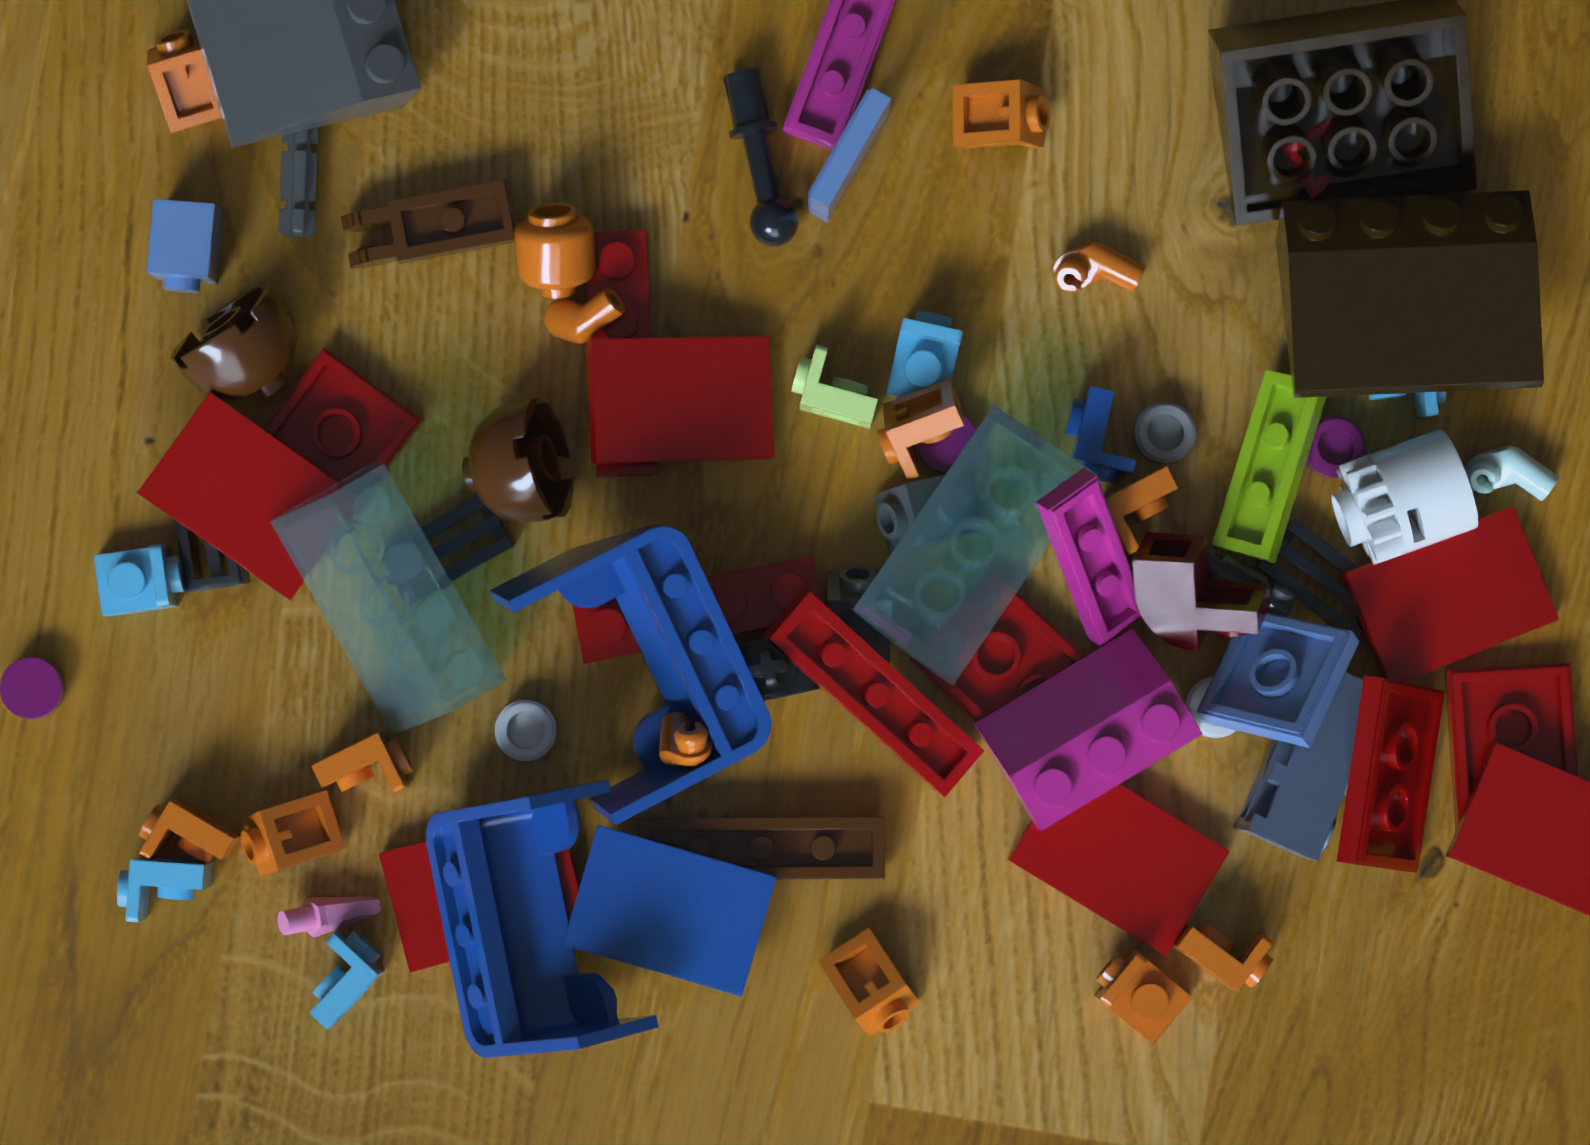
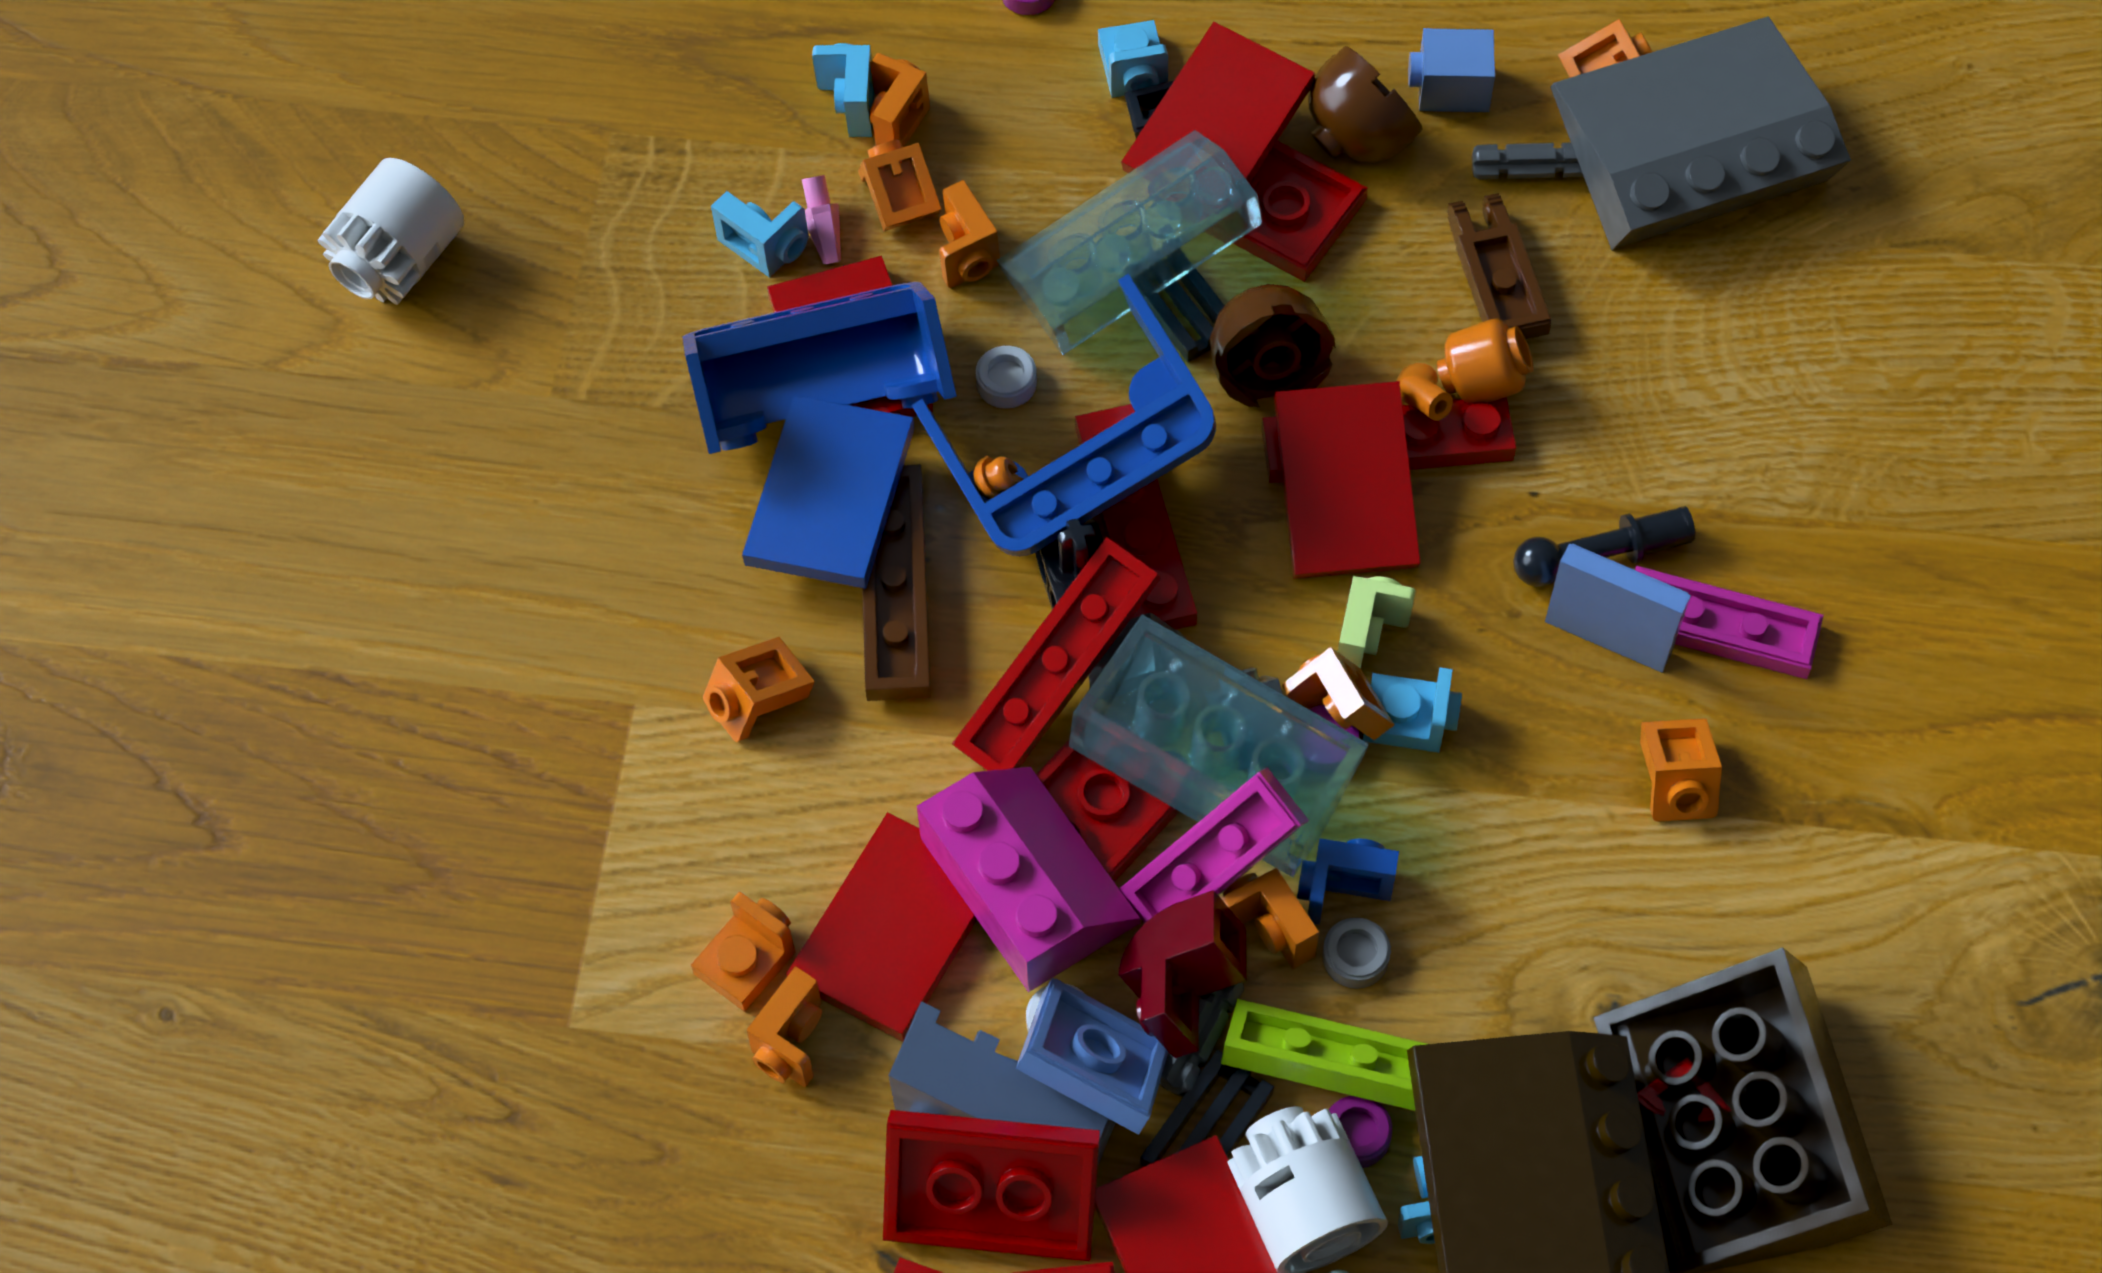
camera: 90 degrees right, 25 degrees down
(1093, 263) = (1532, 870): orange arm -> none

